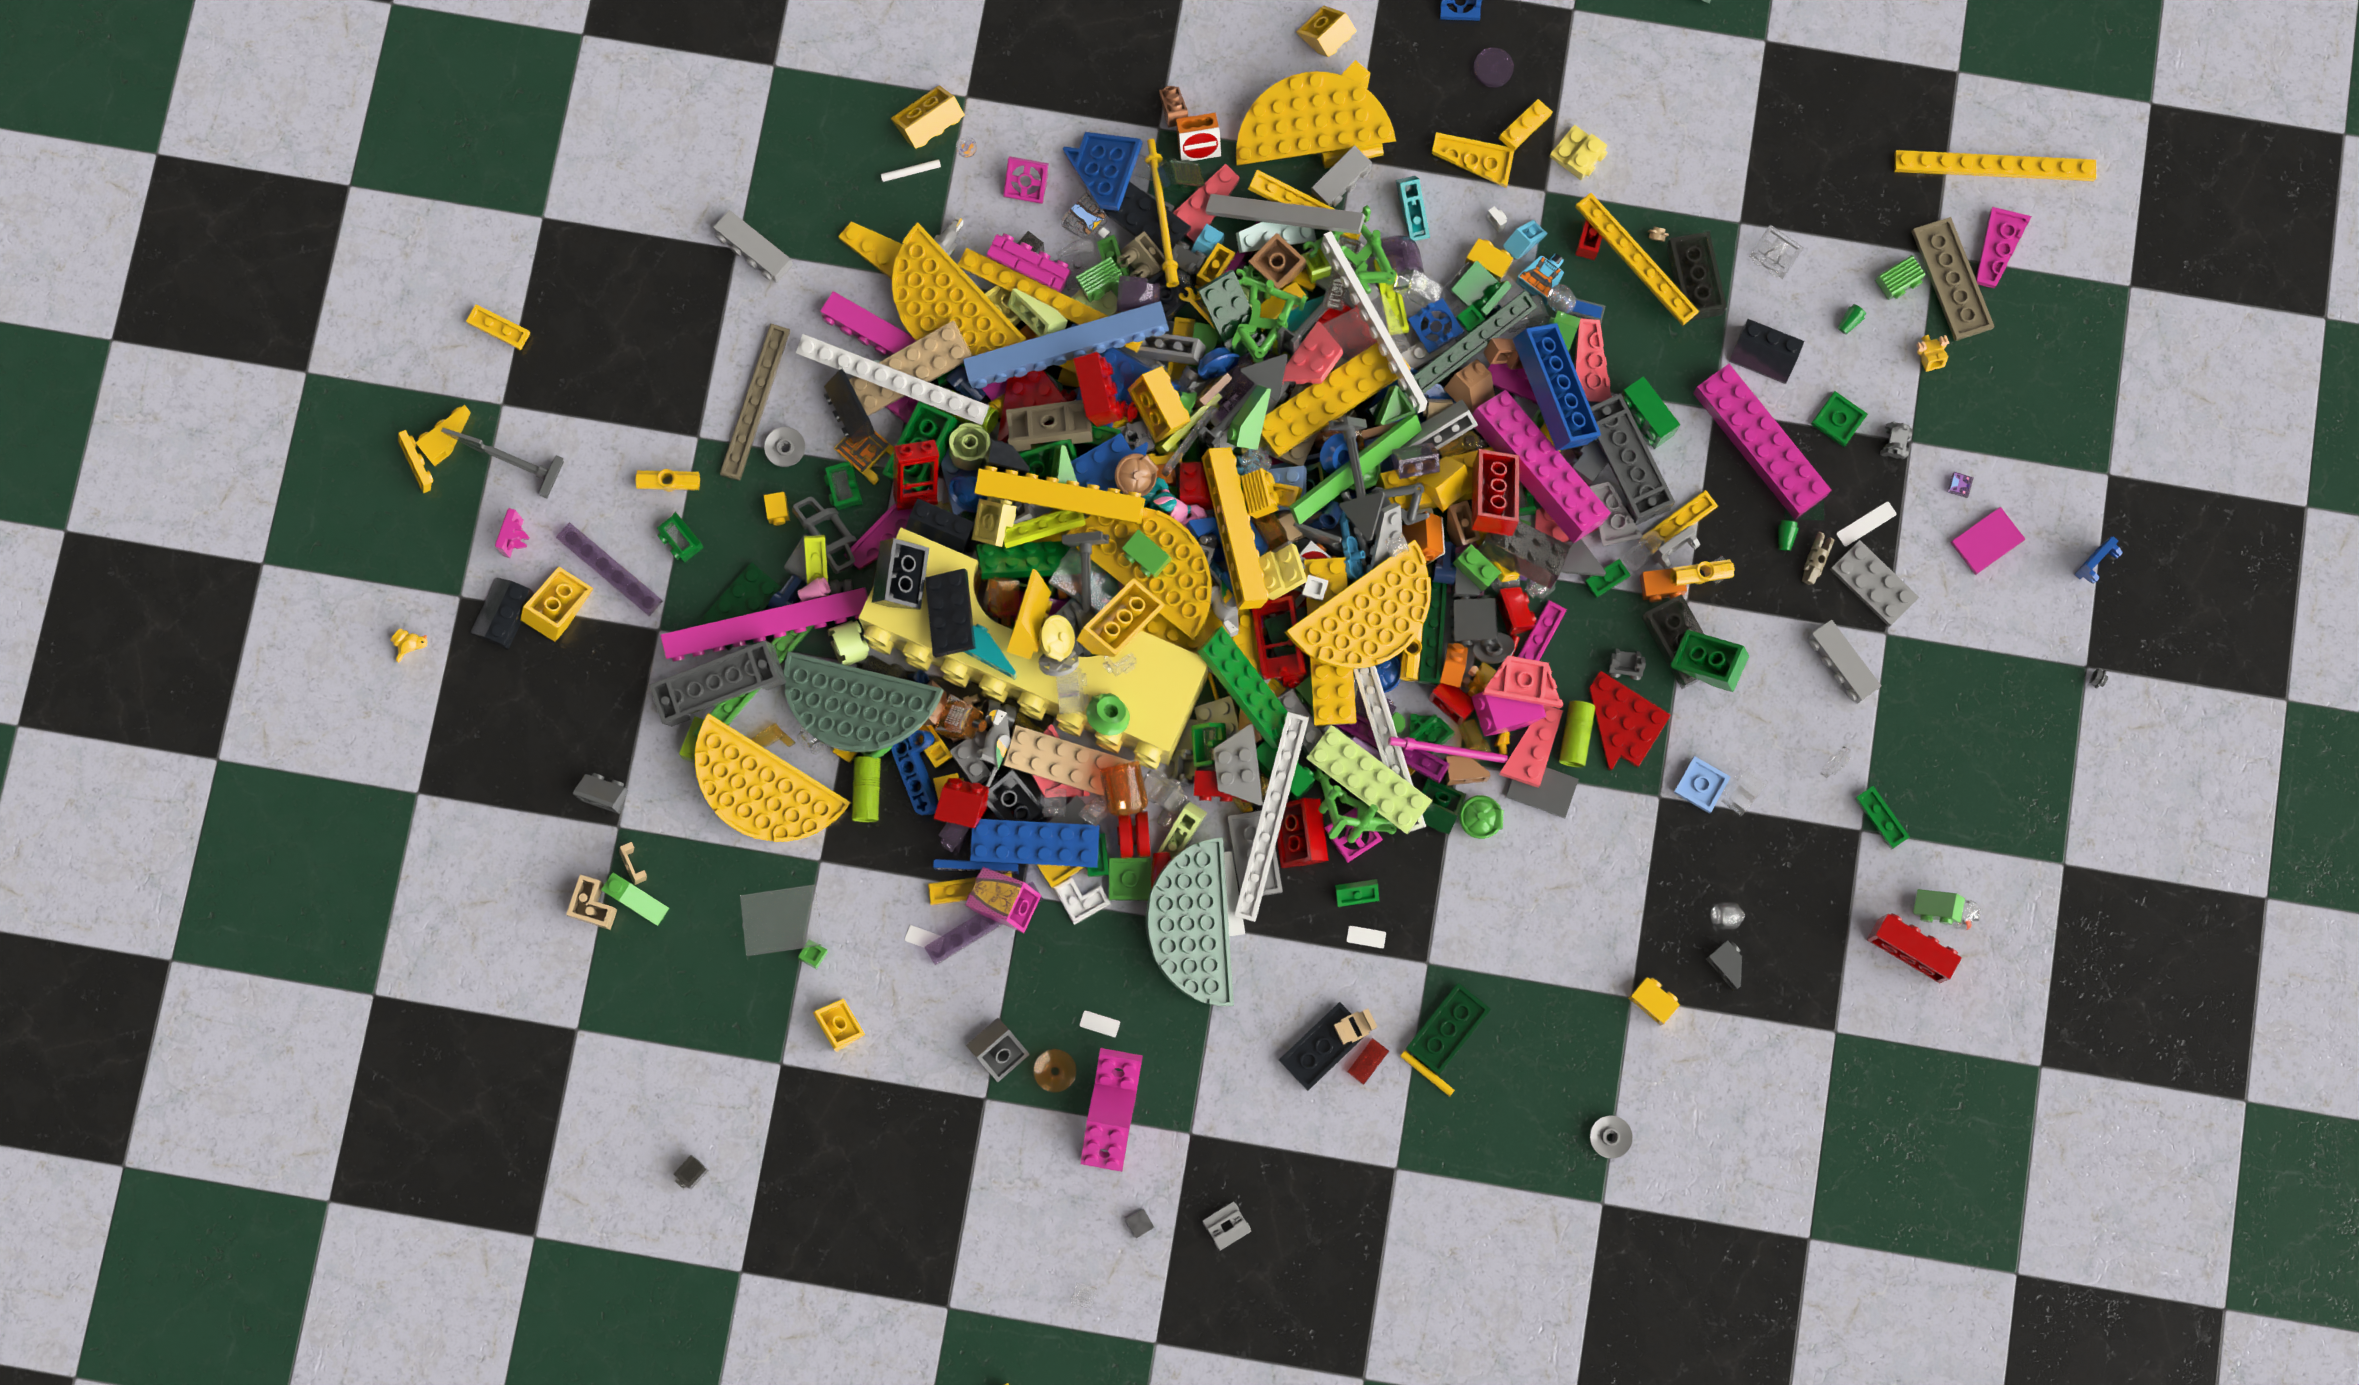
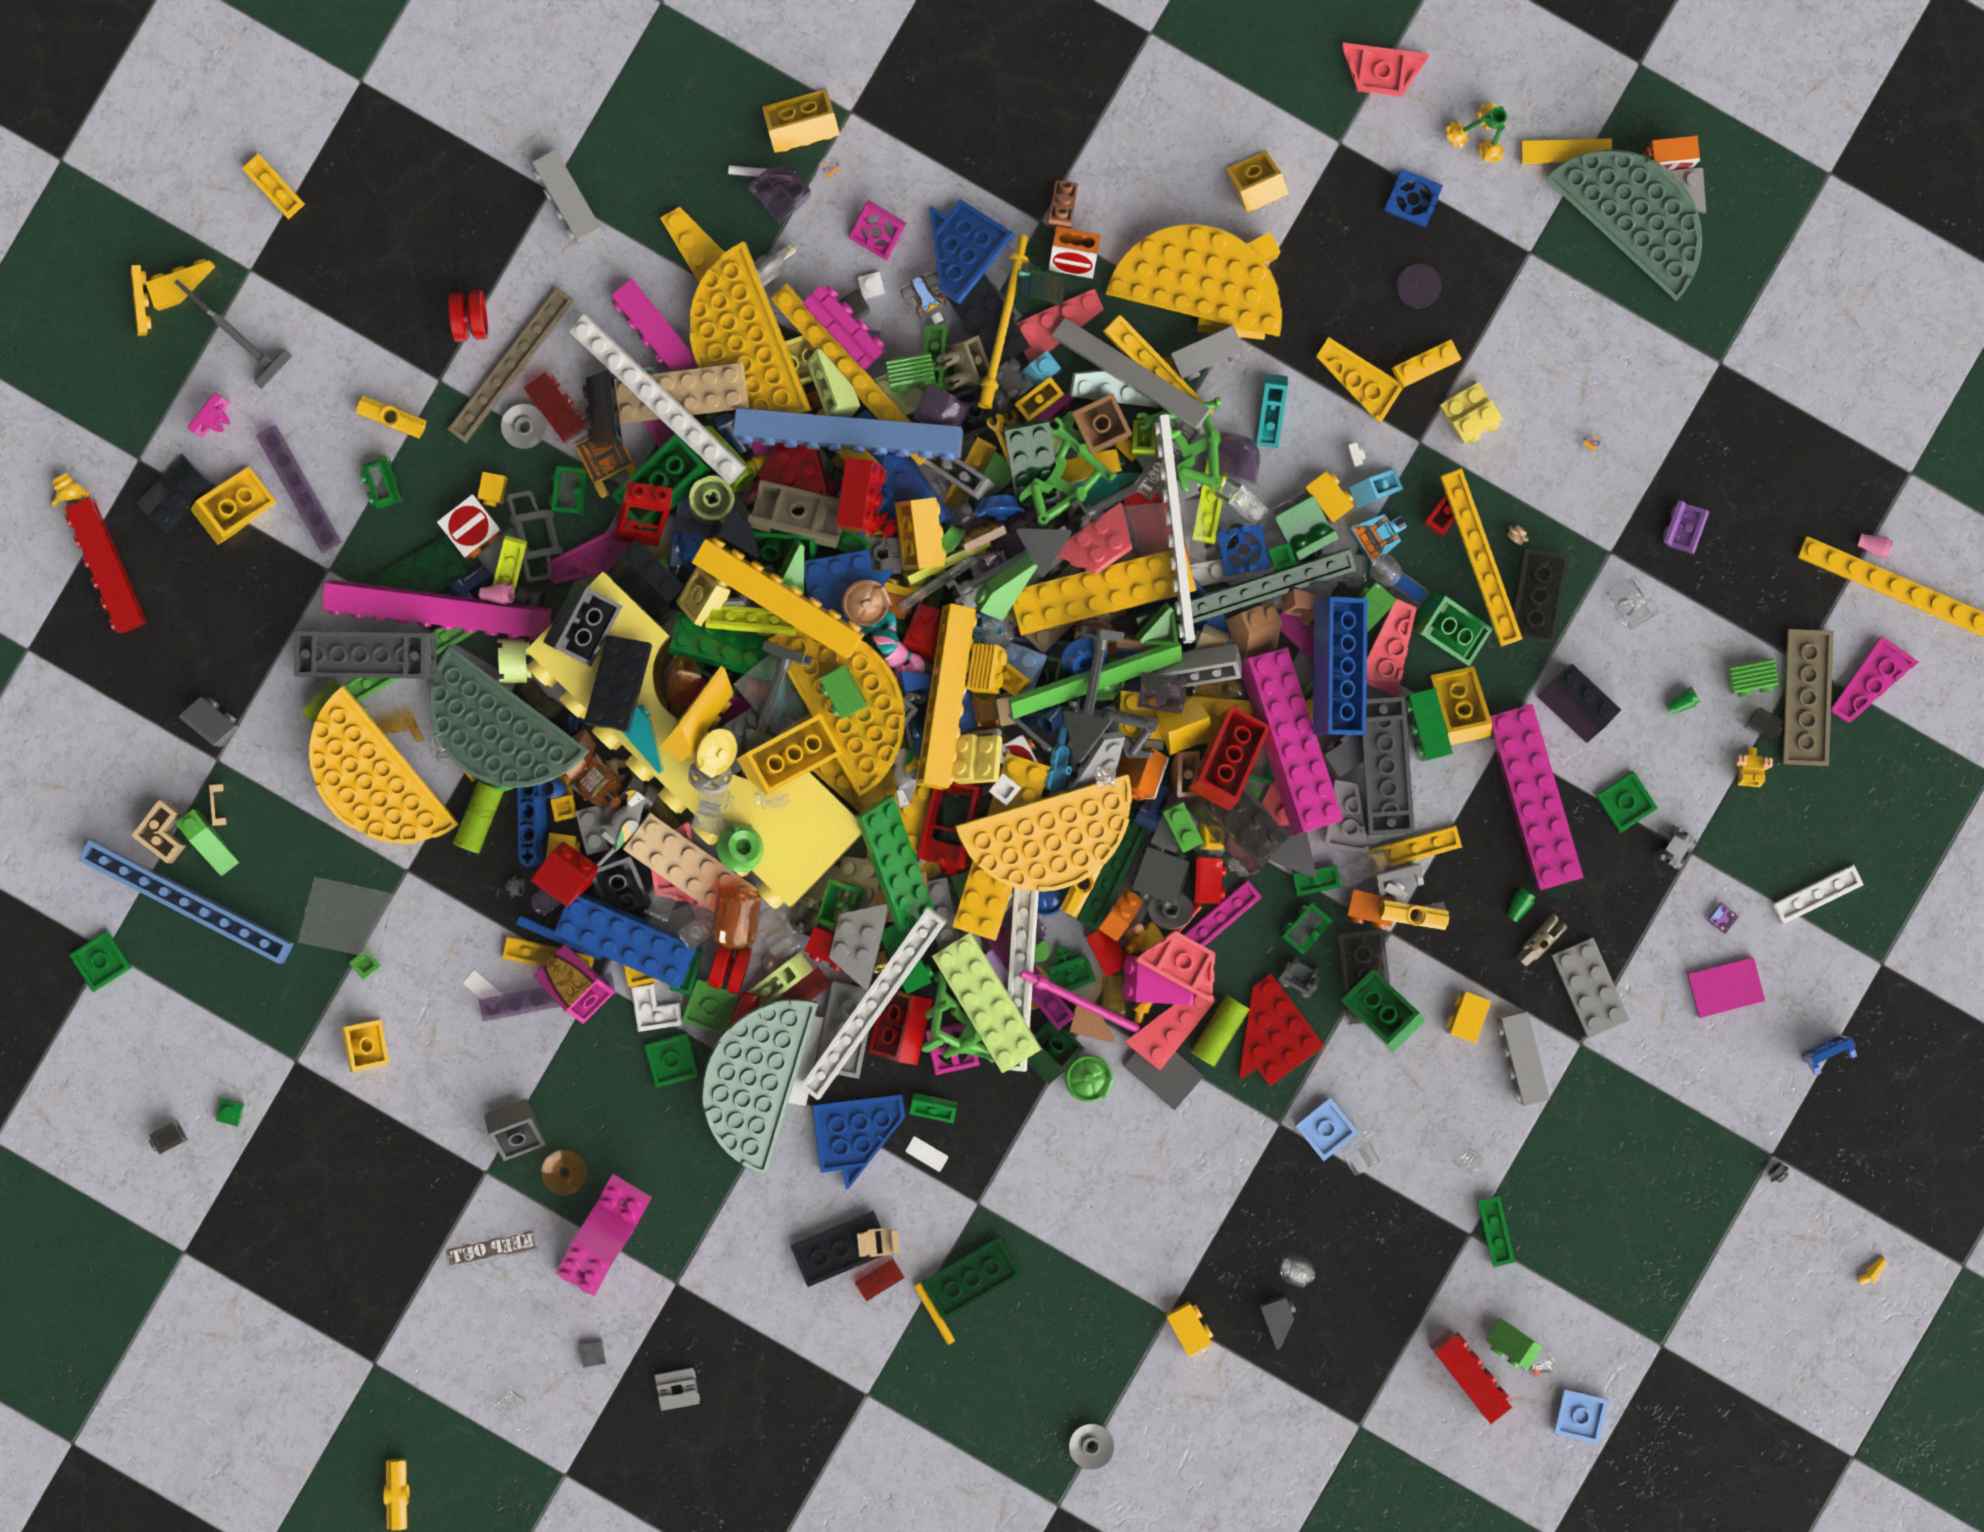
camera: 25 degrees right, 10 degrees up
(462, 694) = (105, 566): none -> red brick
(575, 1039) = (100, 961): none -> green tile
(634, 956) = (186, 901): none -> medium blue brick
(702, 371) = (468, 315): none -> red wheel
(738, 1130) = (230, 1112): none -> green plate
(769, 546) = (470, 527): none -> piece
(807, 421) = (556, 407): none -> clear red brick
(920, 837) = (515, 886): none -> dark grey plate
(932, 177) = (779, 192): none -> clear purple brick
(1014, 1164) = (491, 1248): none -> clear tile
(1038, 227) = (871, 285): none -> white plate
(1099, 1023) = (627, 1140): white sticker -> none
(1112, 938) = (671, 1060): none -> green tile
(1209, 827) = (809, 986): none -> clear red plate
(1296, 940) = (854, 1132): none -> blue wing
(1616, 620) = (1306, 929): none -> window
(1634, 328) = (1451, 627): none -> green slope
(1673, 387) = (1462, 705): none -> yellow slope
(1678, 560) = (1396, 890): none -> white plate
(1687, 140) = (1591, 442): none -> clear tile
(1783, 644) = (1468, 1016): none -> yellow brick
(1793, 178) = (1685, 527): none -> medium lavender bracket
(1866, 523) = (1608, 922): white sticker -> none
(1927, 312) = (1764, 724): none -> clear smoke brick
(1957, 136) = (1876, 545): none -> bright pink cone
(2021, 949) = (1581, 1416): none -> light blue plate
(2030, 436) = (1817, 894): none -> white tile
(2214, 733) = (1872, 1272): none -> yellow bar

